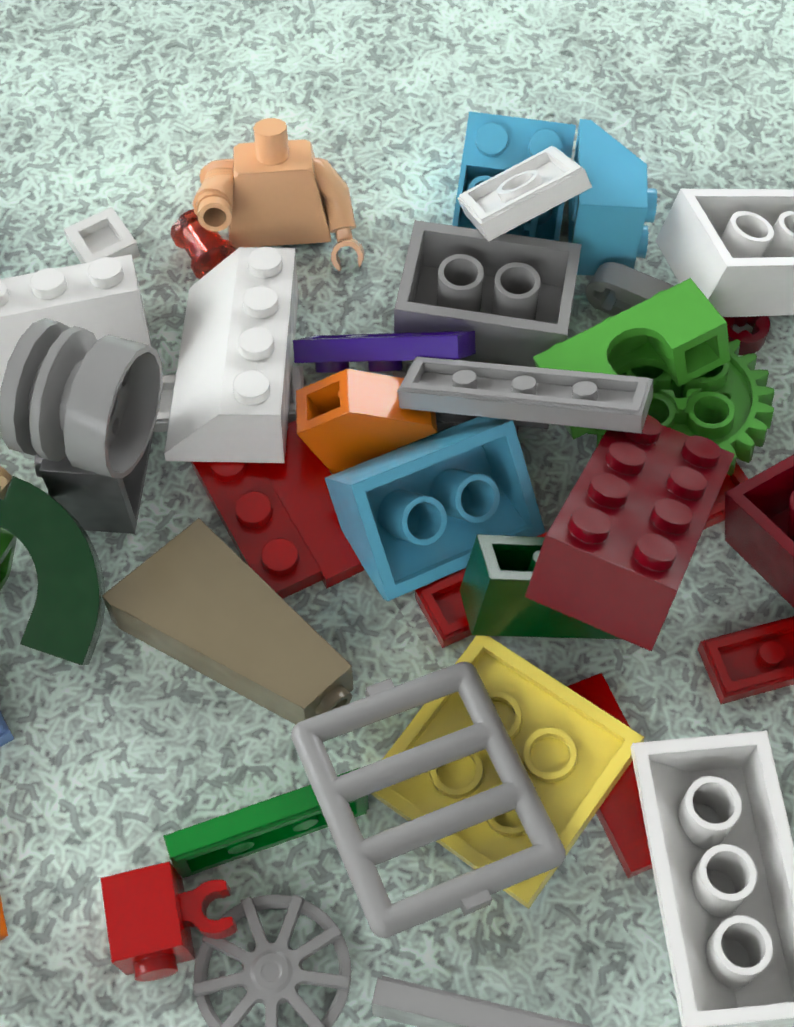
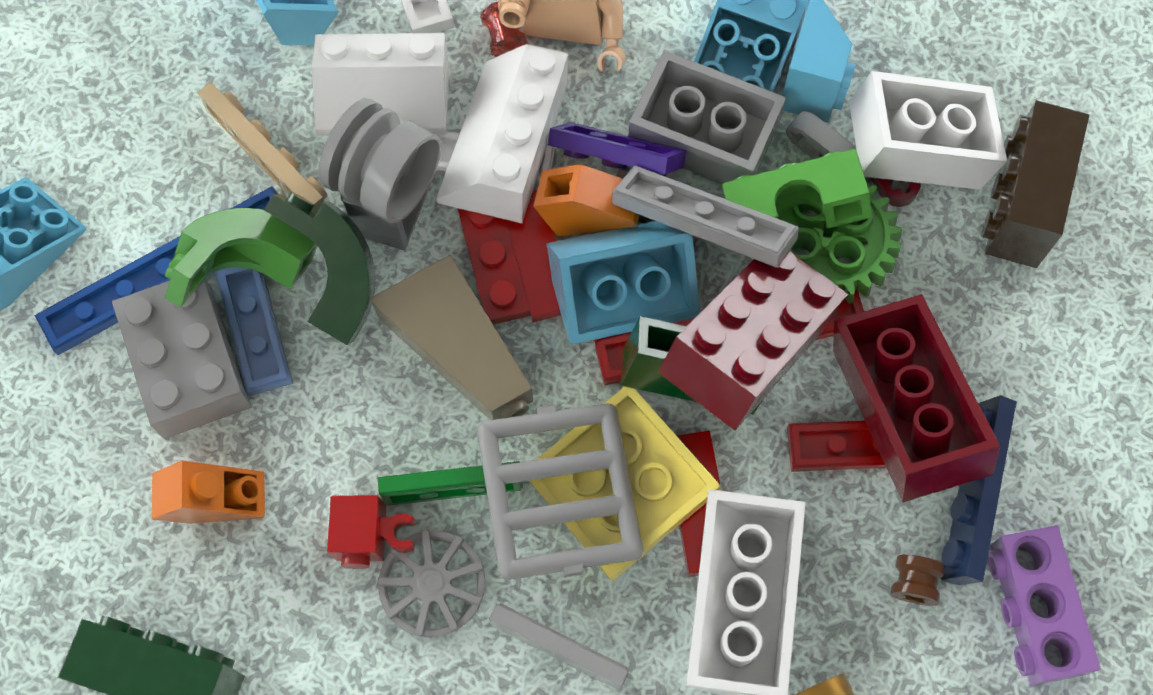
camera: 15 degrees right, 10 degrees up
(523, 192) = (750, 47): white tile -> none

